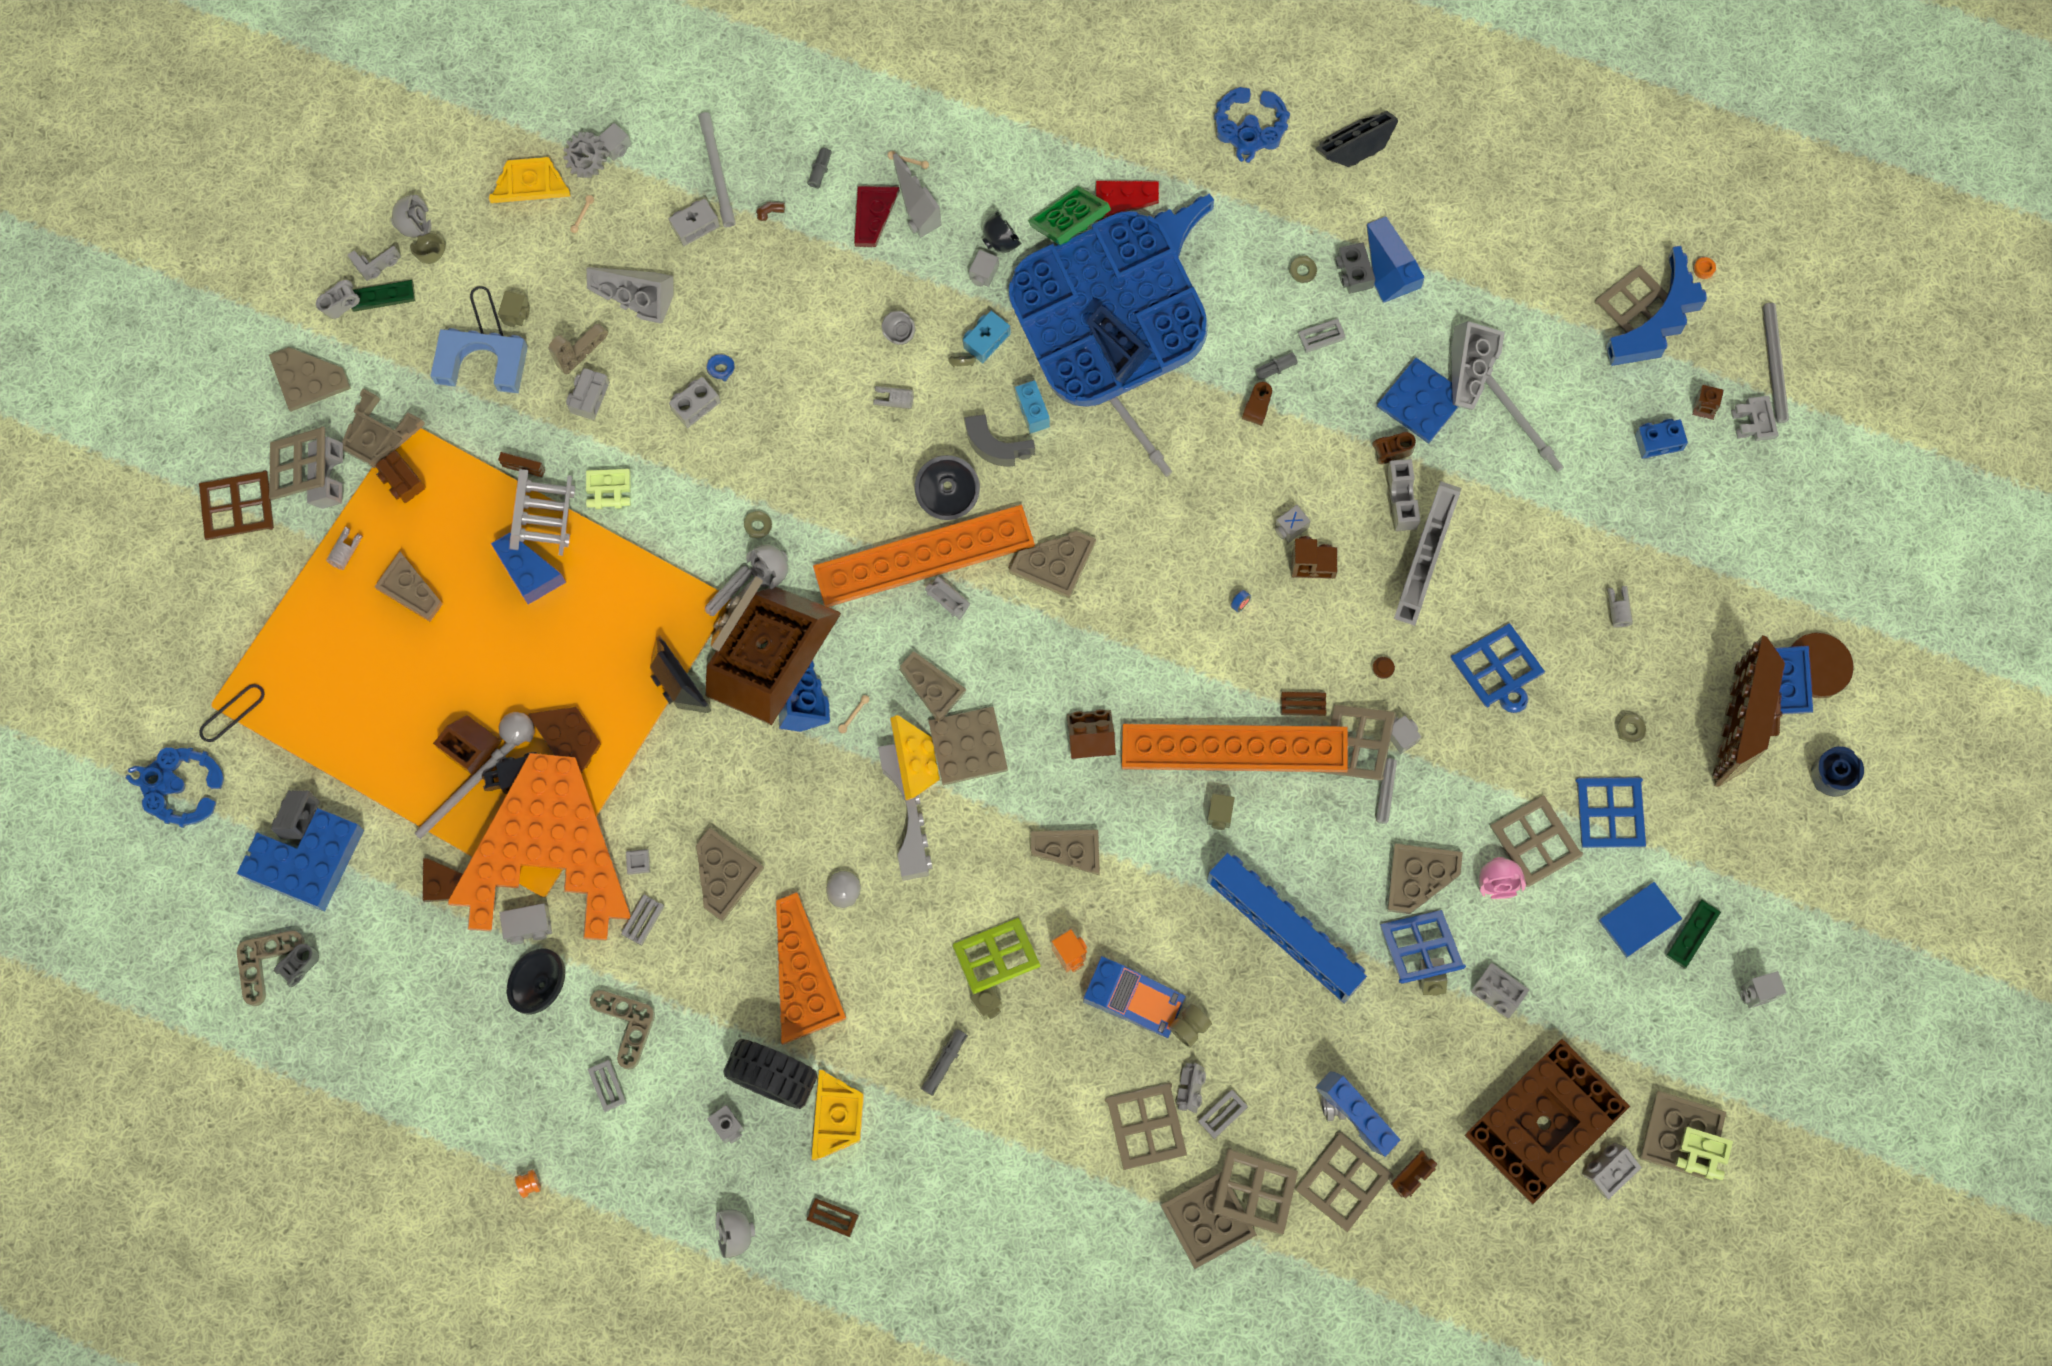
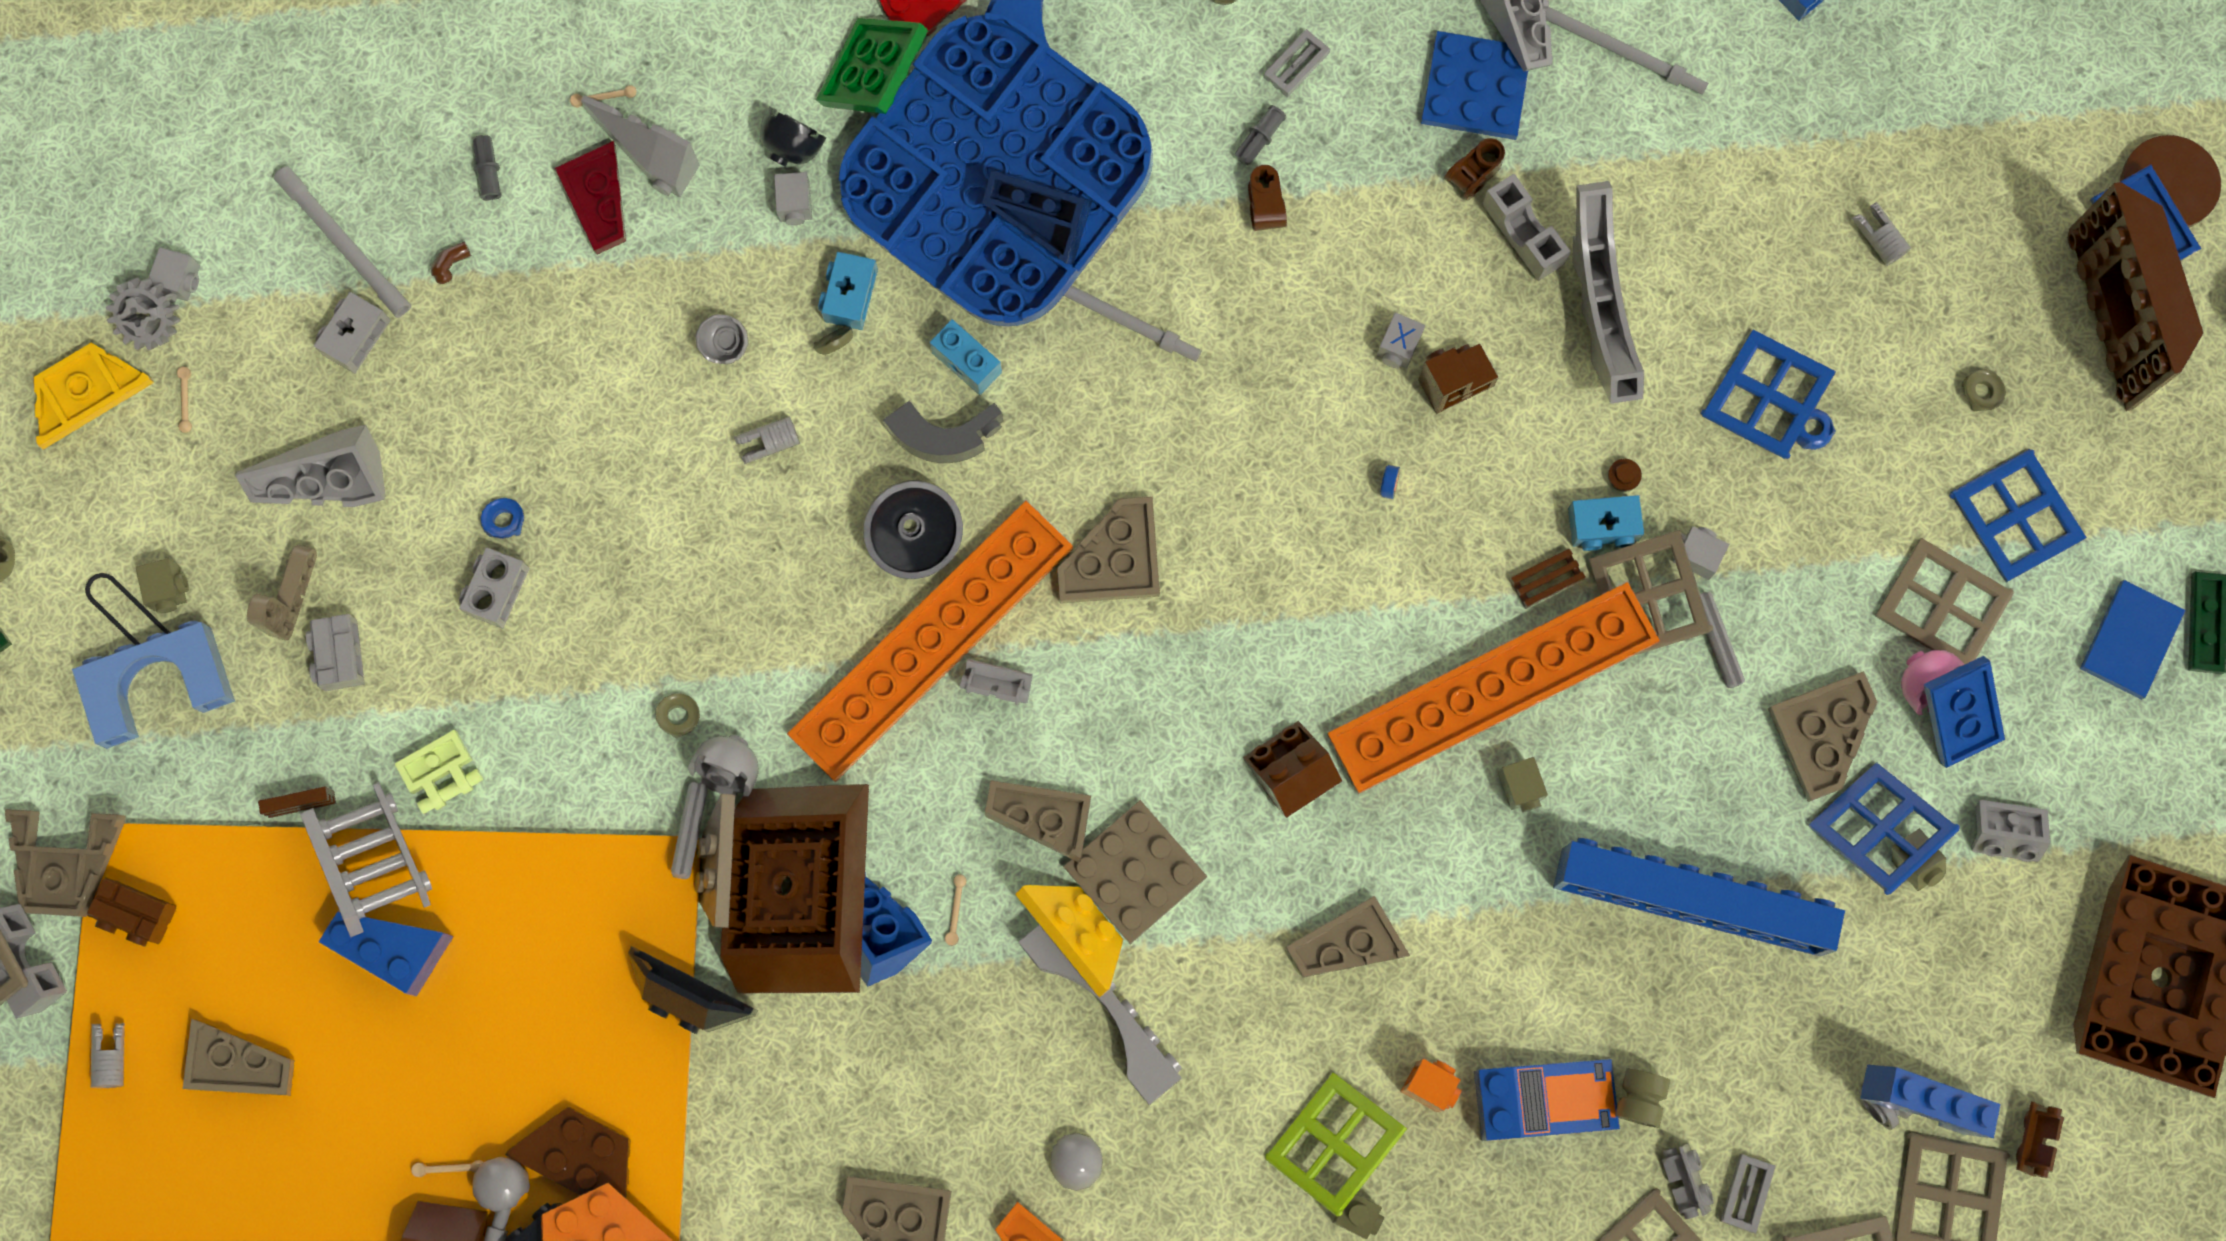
camera: 30 degrees left, 5 degrees up
(477, 700) = (421, 1169): none -> tan hinge
(1348, 679) = (1620, 511): none -> dark azure brick
(1508, 904) = (1964, 711): none -> blue tile

